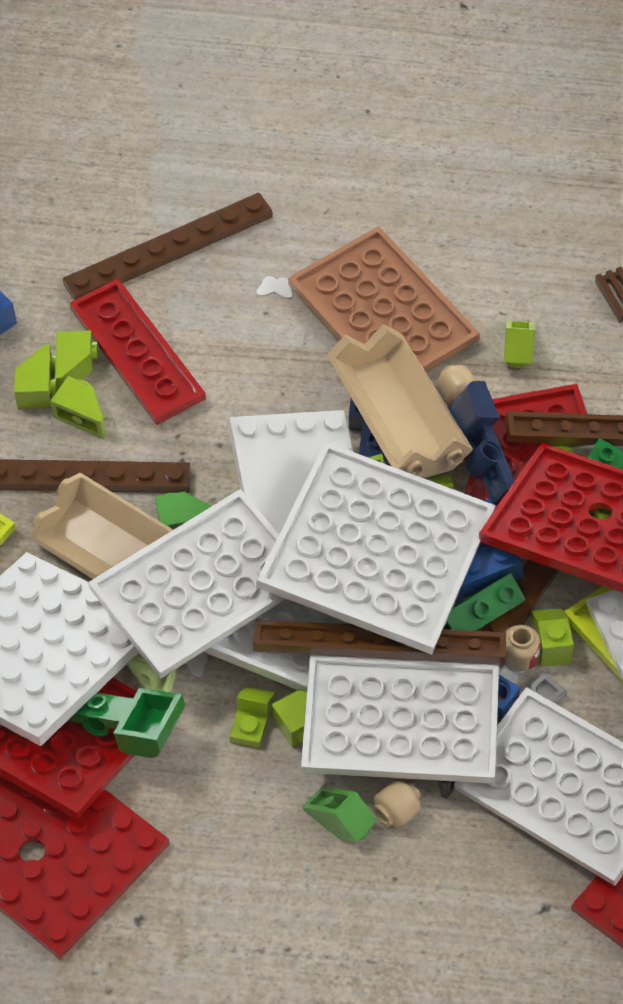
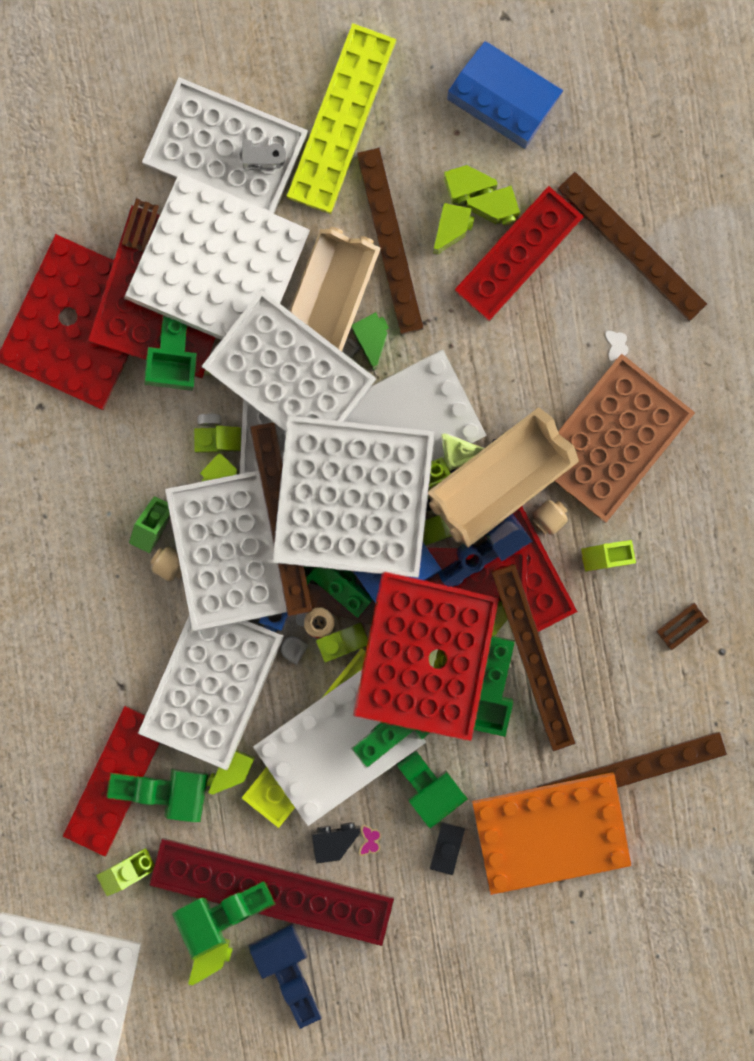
camera: 75 degrees right, 30 degrees up
(224, 714) = (209, 419): none -> light grey tile
(355, 439) = (458, 451): none -> yellowish green tile

